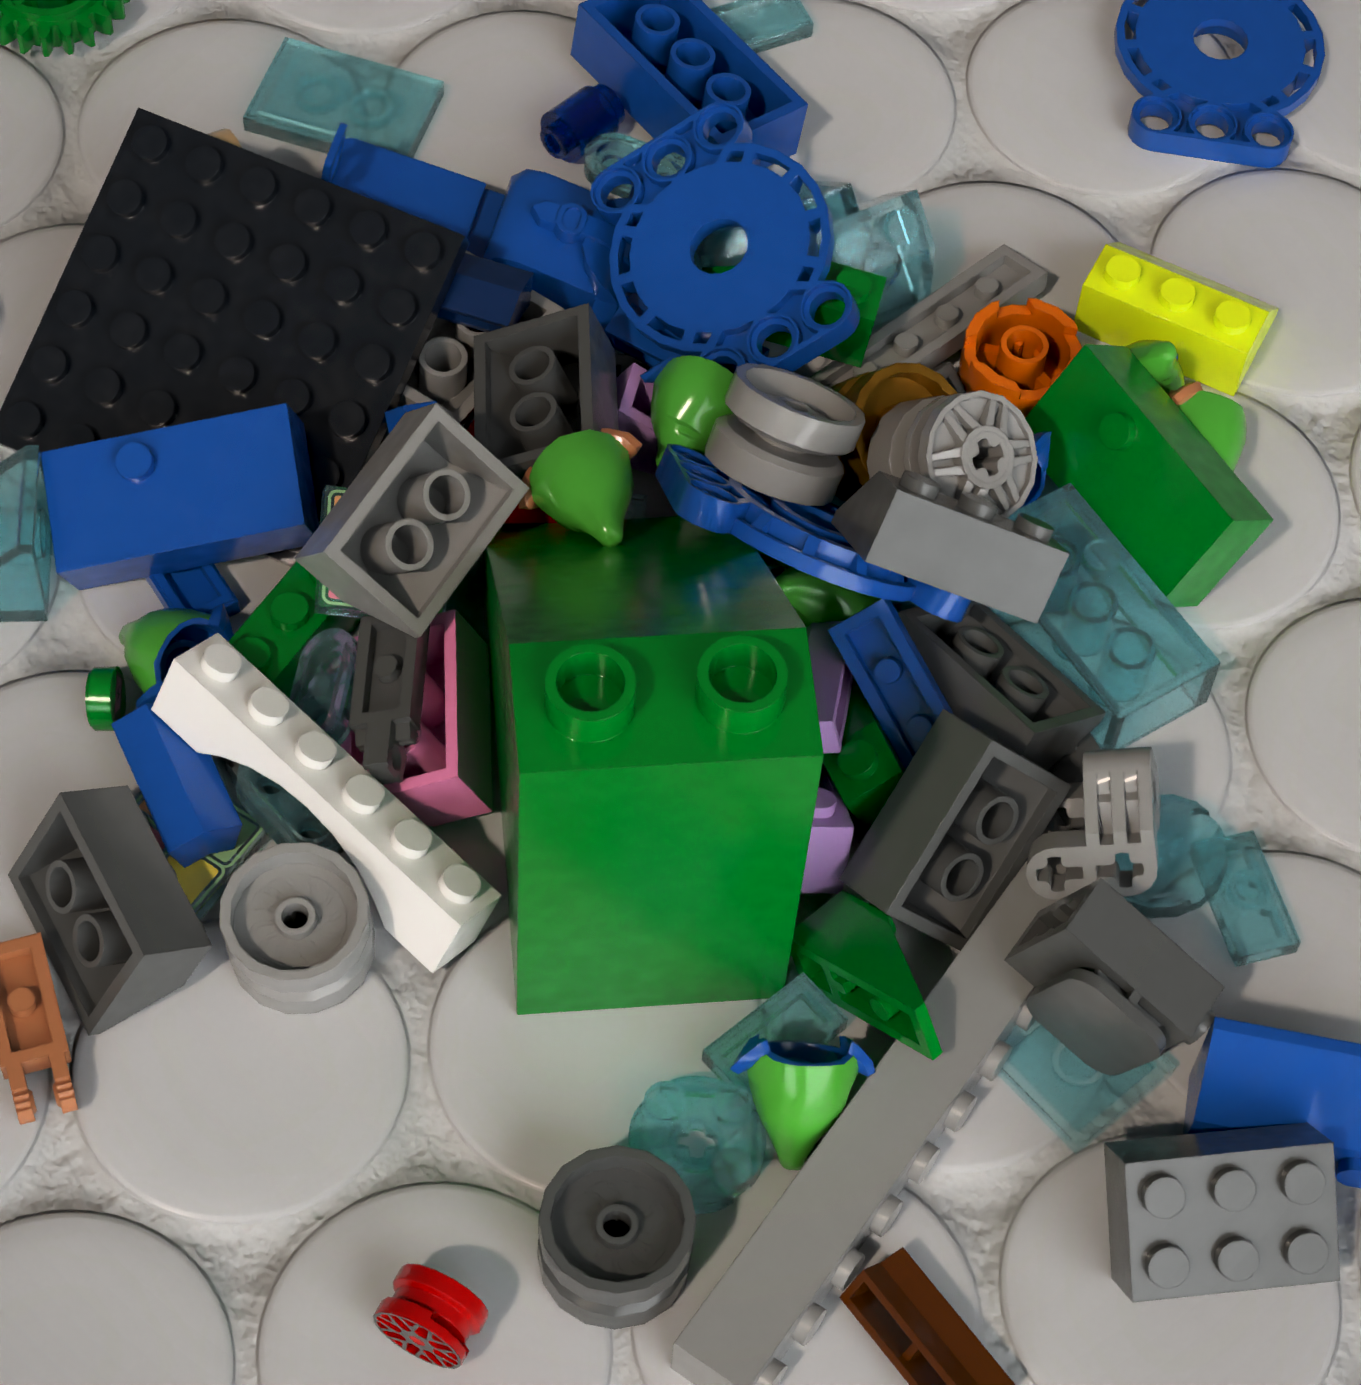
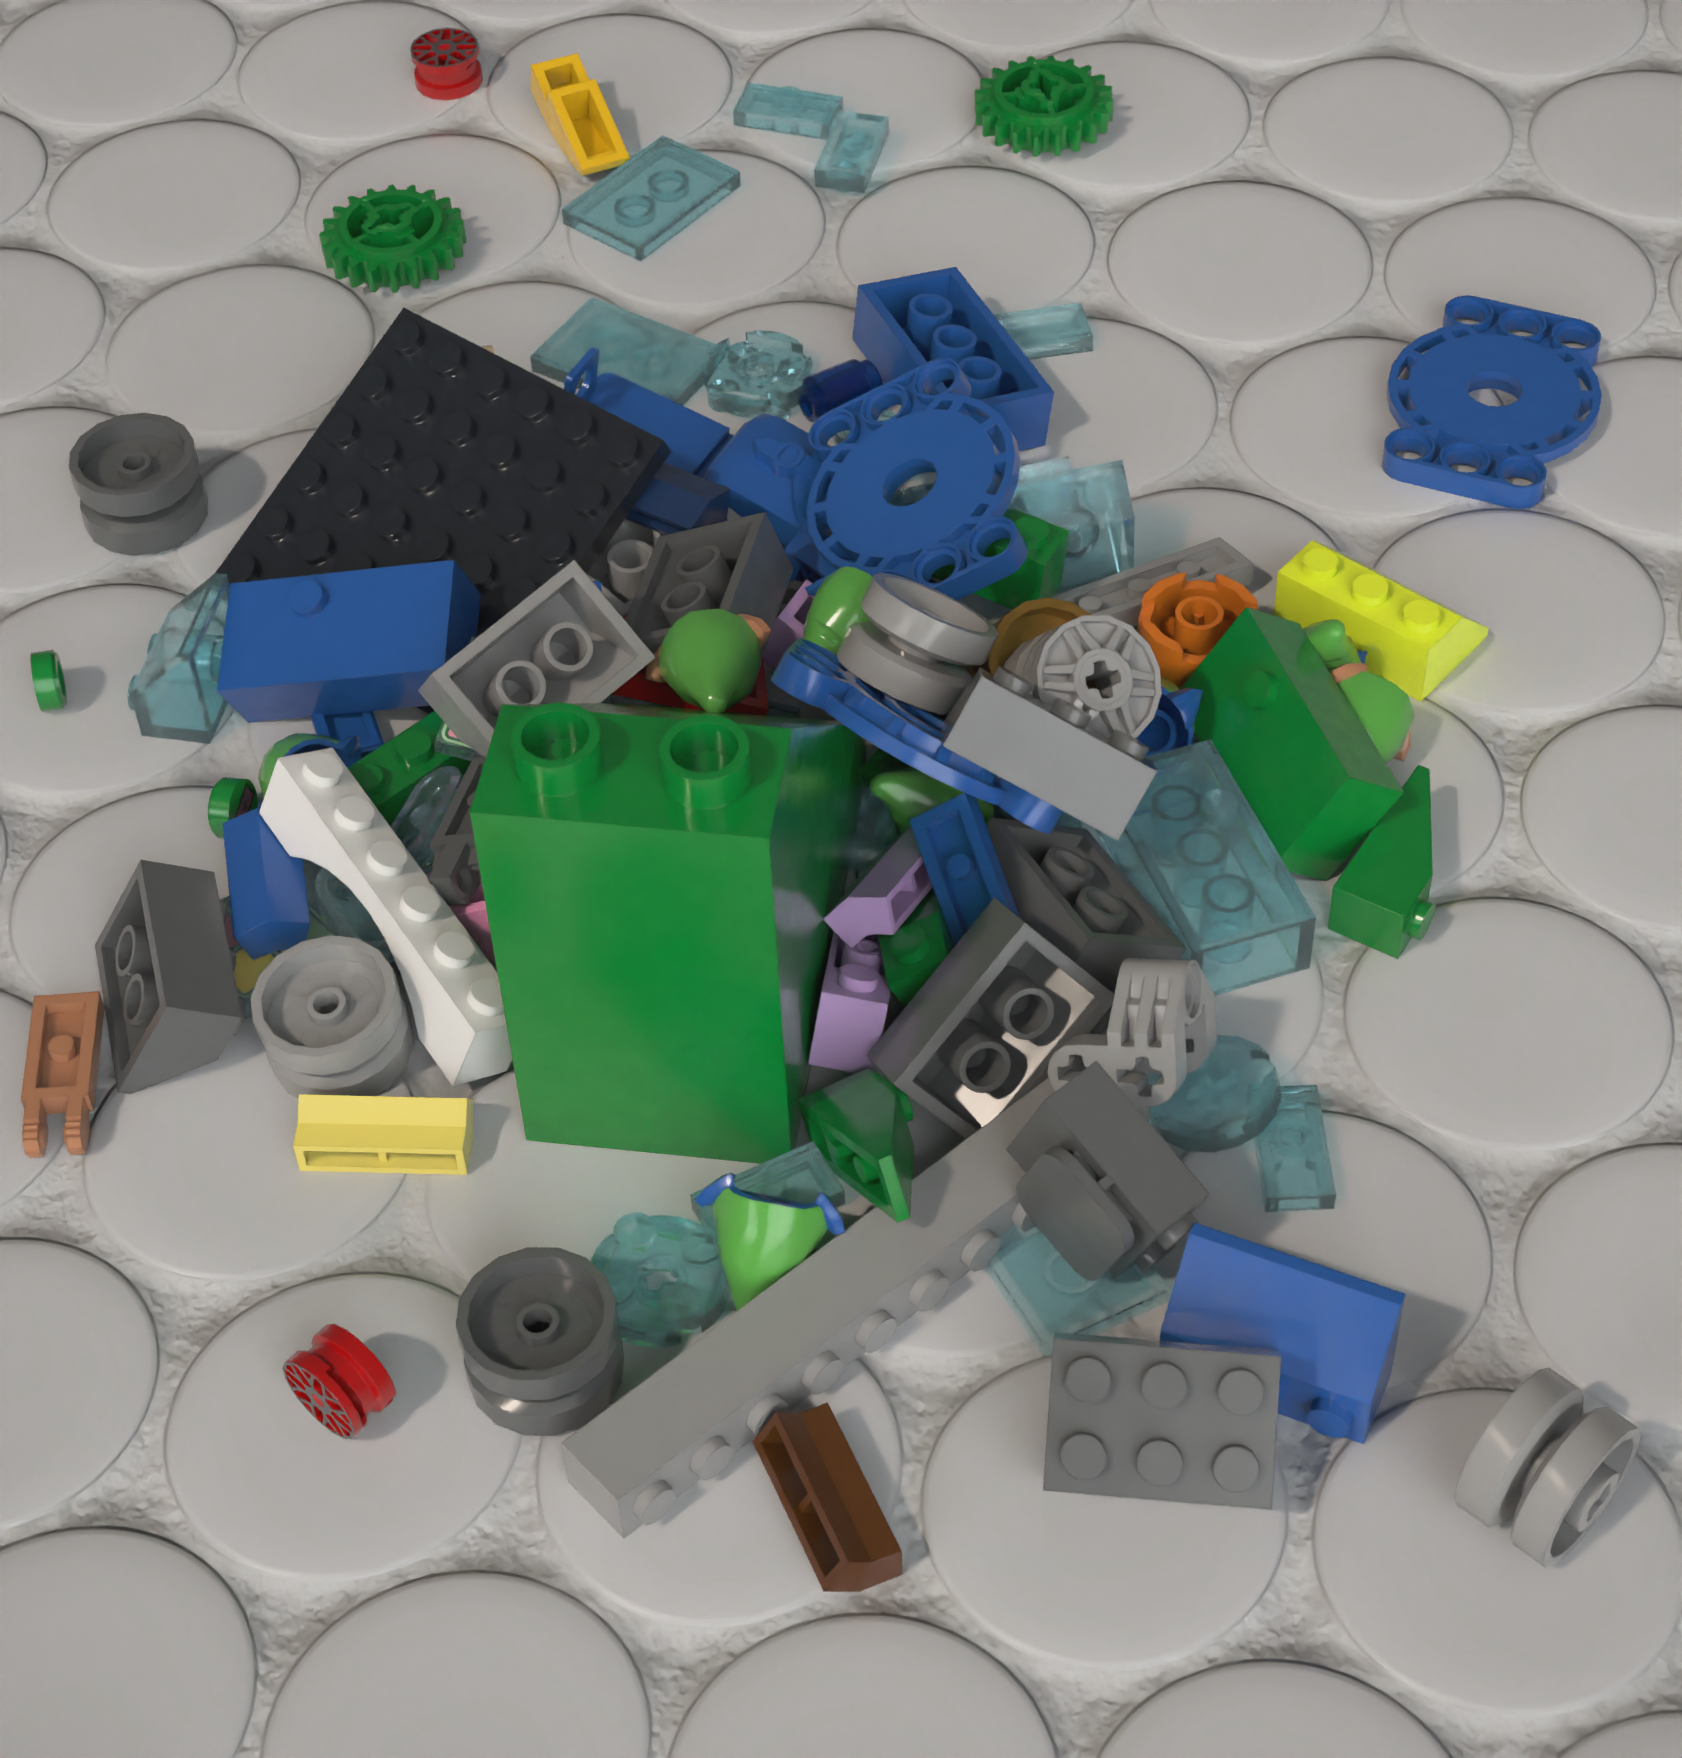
camera: 20 degrees right, 10 degrees down
(380, 1035) = (384, 1134): none -> light yellow piece
(482, 136) = (733, 373): none -> clear light blue plate
(1268, 599) = (1388, 881): none -> green slope

